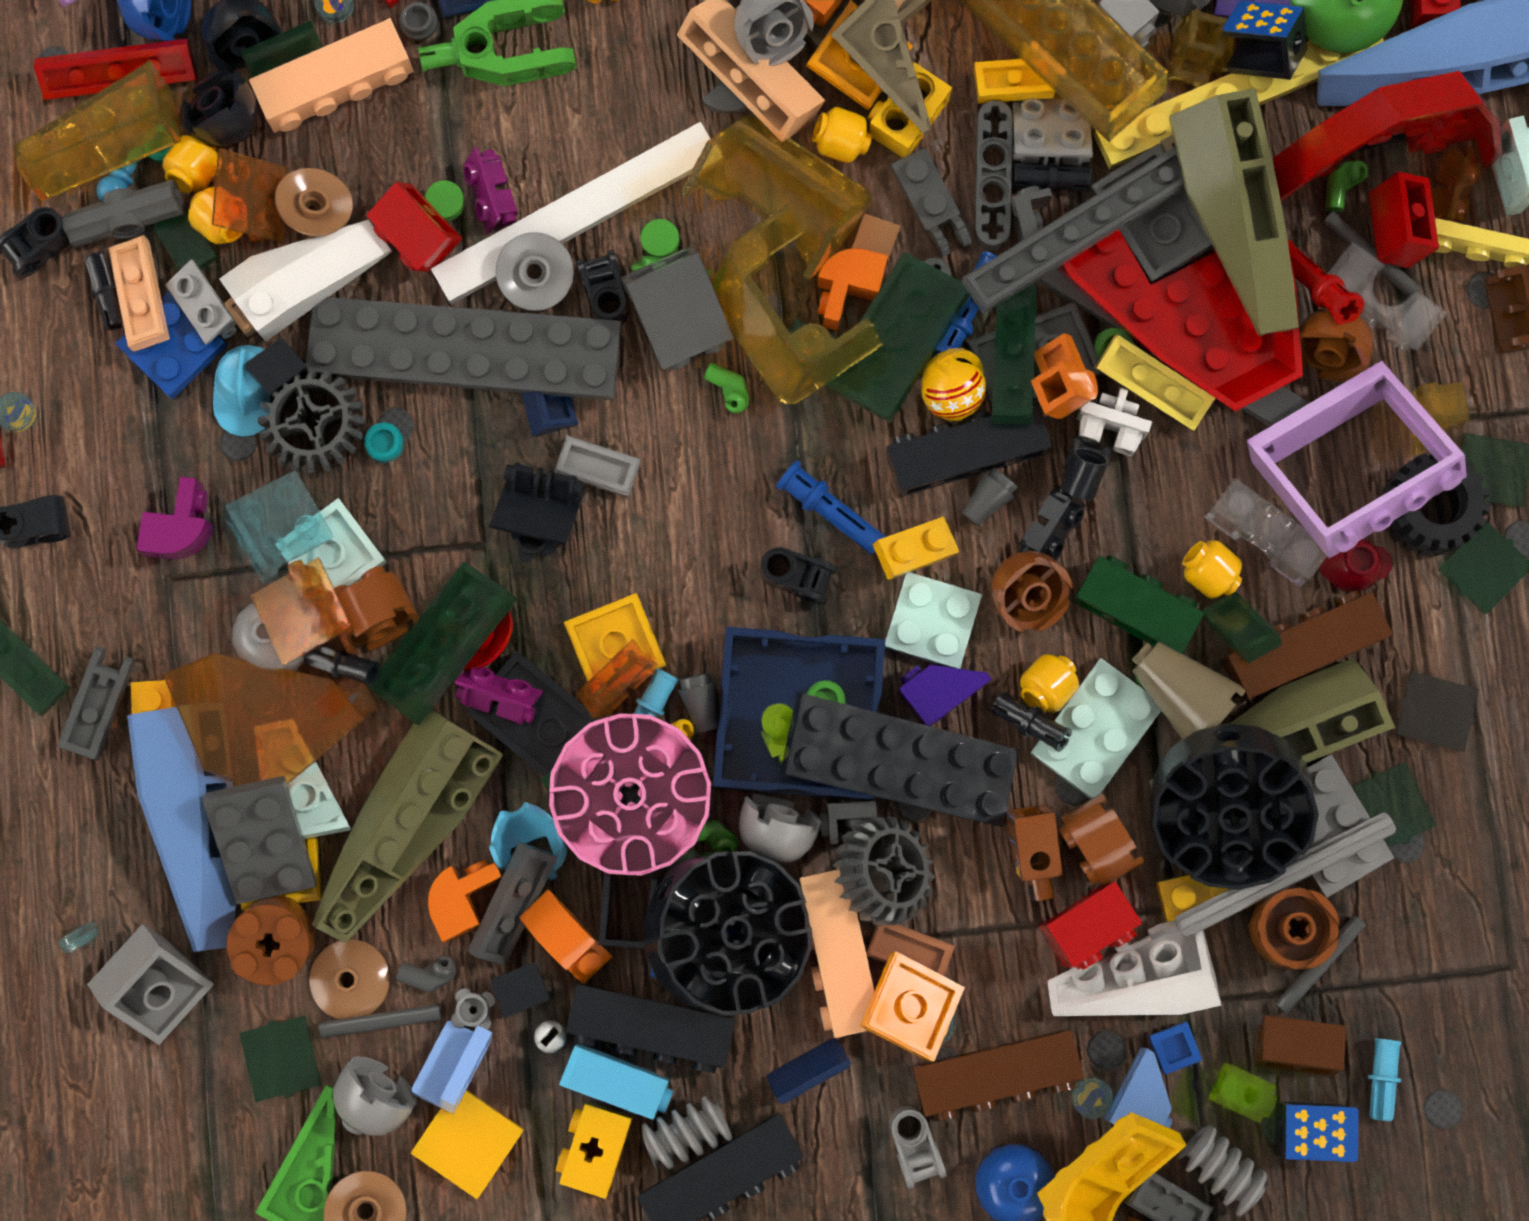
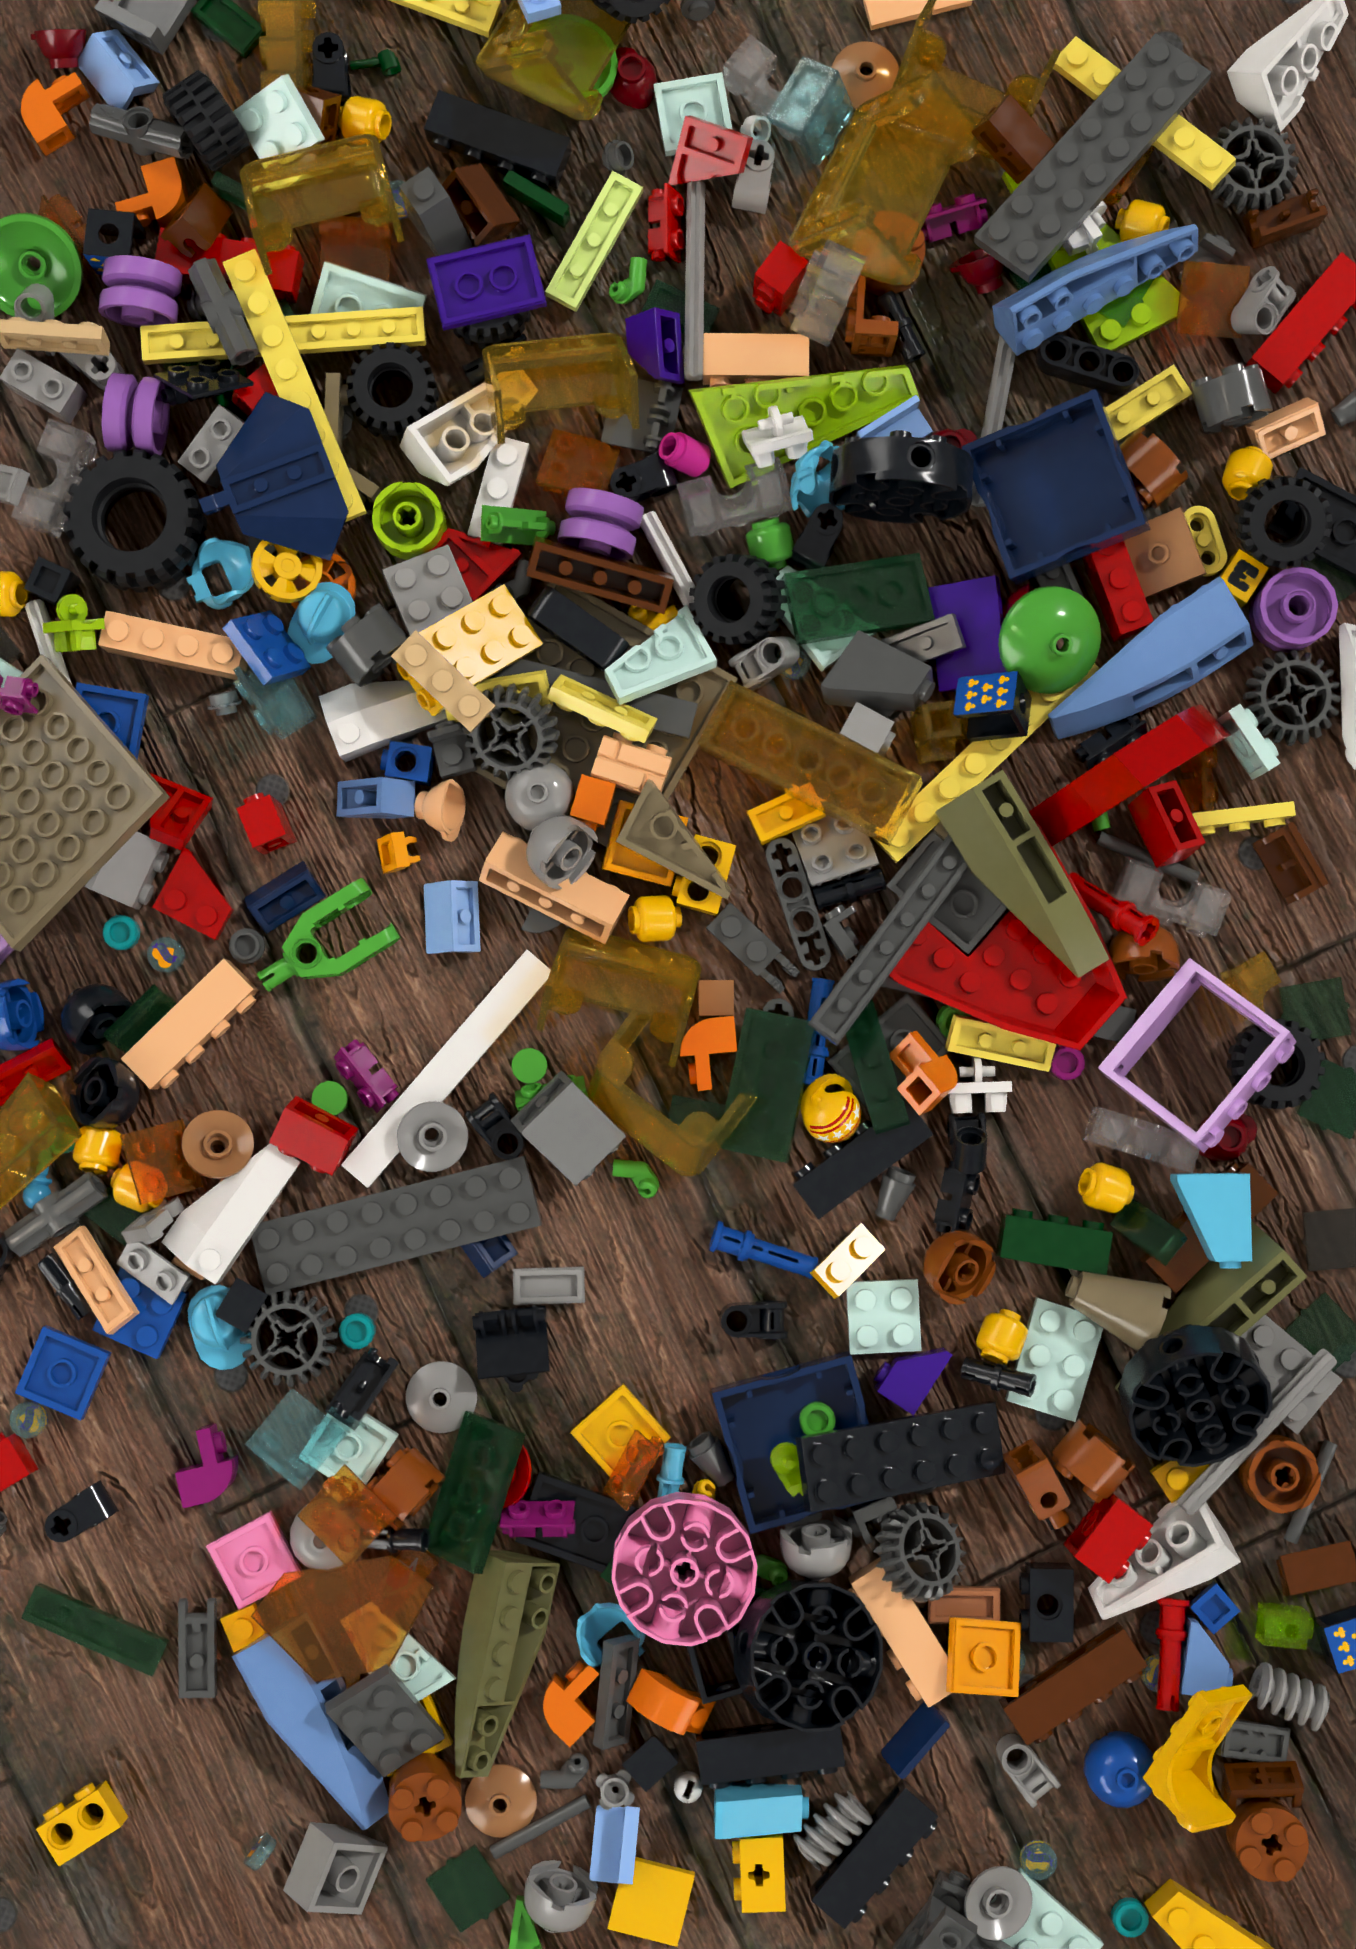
camera: 20 degrees left, 5 degrees up
(68, 376) = (63, 1372): none -> blue plate
(187, 631) = (253, 1559): none -> bright pink tile
(214, 255) = (150, 1225): none -> light grey plate
(367, 498) = (361, 1388): none -> black hinge
(465, 540) = (443, 1378): none -> light grey dish
(637, 63) = (452, 917): none -> light blue panel
(1019, 961) = (1058, 1621): none -> black brick
(1119, 1060) = (1171, 1635): none -> red pin
(1215, 430) = (1067, 1063): none -> magenta tile
(1322, 627) = (1219, 1214): none -> medium azure slope

